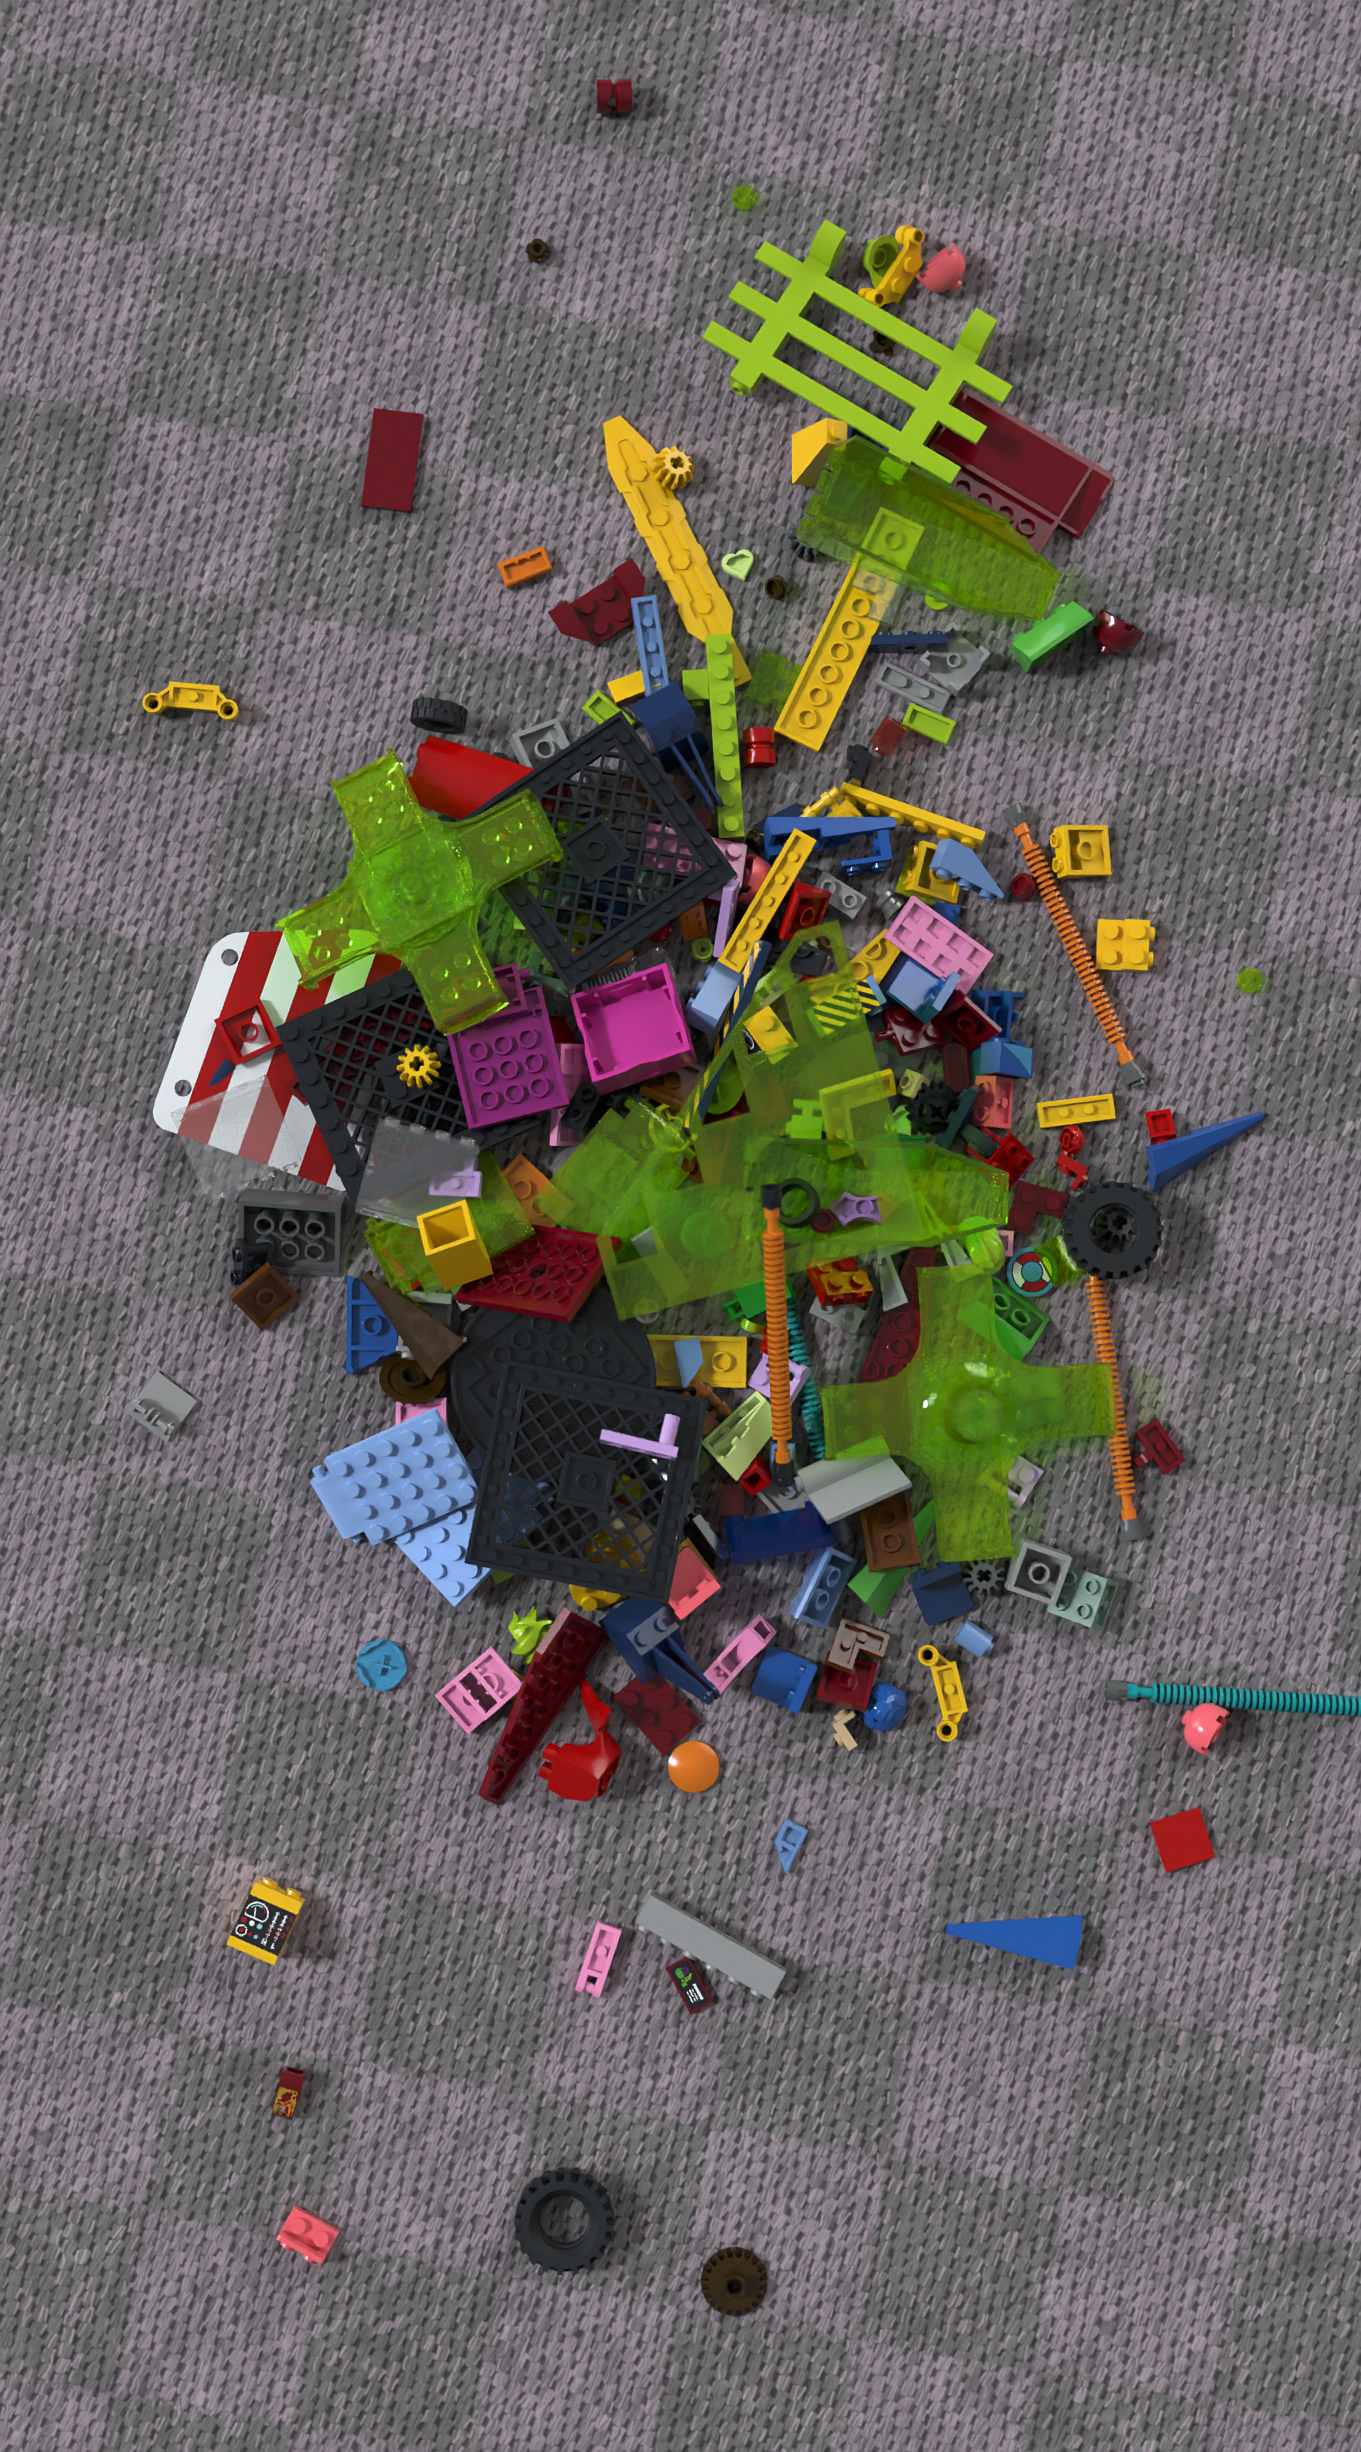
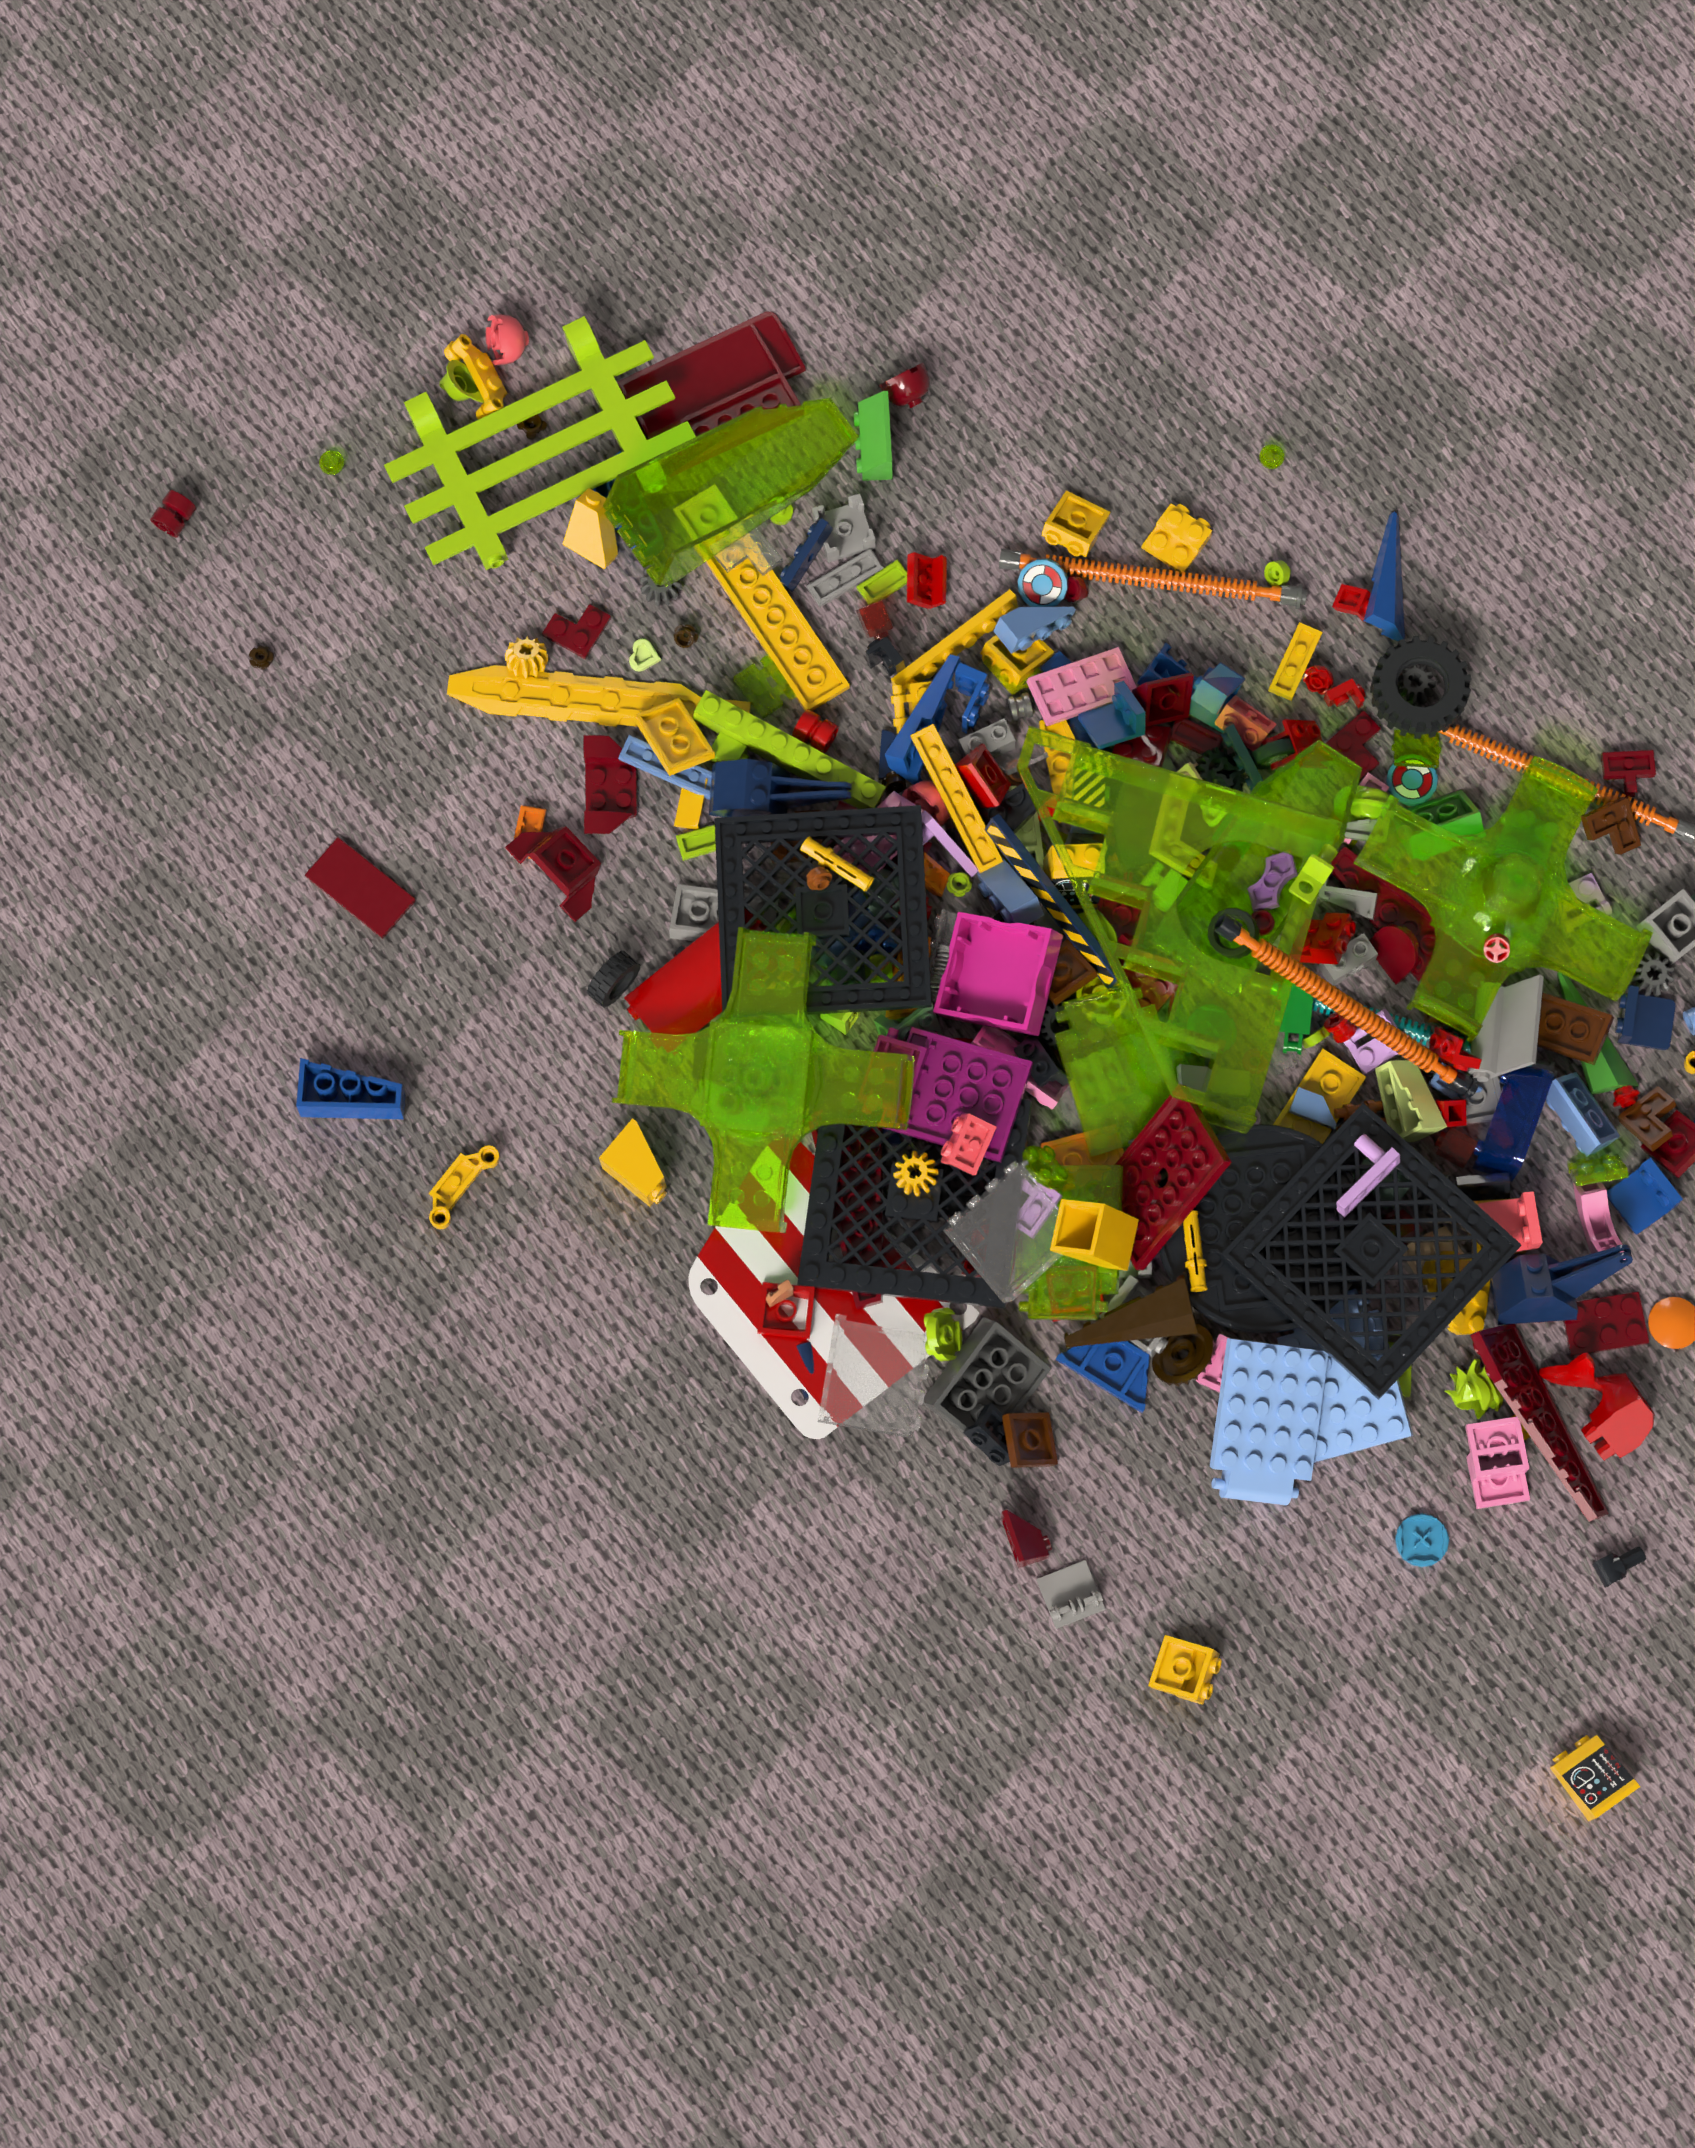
camera: 55 degrees left, 10 degrees down
(154, 1537) = (1185, 1670): none -> yellow plate
(178, 1342) = (1025, 1540): none -> dark red slope
(208, 560) = (345, 1094): none -> blue wedge
(256, 1018) = (785, 1291): none -> nougat tile
(293, 1171) = (943, 1334): none -> lime plate
(294, 833) = (634, 1166): none -> yellow slope
(452, 1836) = (1614, 1567): none -> black axle
(464, 1093) = (968, 1143): none -> coral bracket
(470, 1353) = (1198, 1281): none -> yellow pin
(491, 1168) = (1044, 1166): none -> clear neon green dish
(512, 613) = (564, 862): none -> dark red piece
(618, 829) = (818, 878): none -> dark orange plate
(640, 836) = (828, 858): none -> yellow pin
(678, 633) = (674, 736): none -> yellow tile
(721, 501) = (577, 637): none -> dark red plate
(782, 1627) = (1597, 1170): none -> clear neon green plate
(803, 1448) = (1449, 1049): none -> red bracket
(863, 1613) = (1625, 1096): none -> red plate
(868, 1347) = (1396, 951): none -> dark red tile
(872, 1241) = (1315, 873): none -> lime bracket
(906, 1433) = (1496, 952): none -> wheel
(951, 757) = (926, 580): none -> red bracket
(1009, 857) = (1042, 583): none -> tile
(1099, 1462) = (1615, 820): none -> reddish brown plate
(1145, 1048) = (1277, 573): none -> lime tile

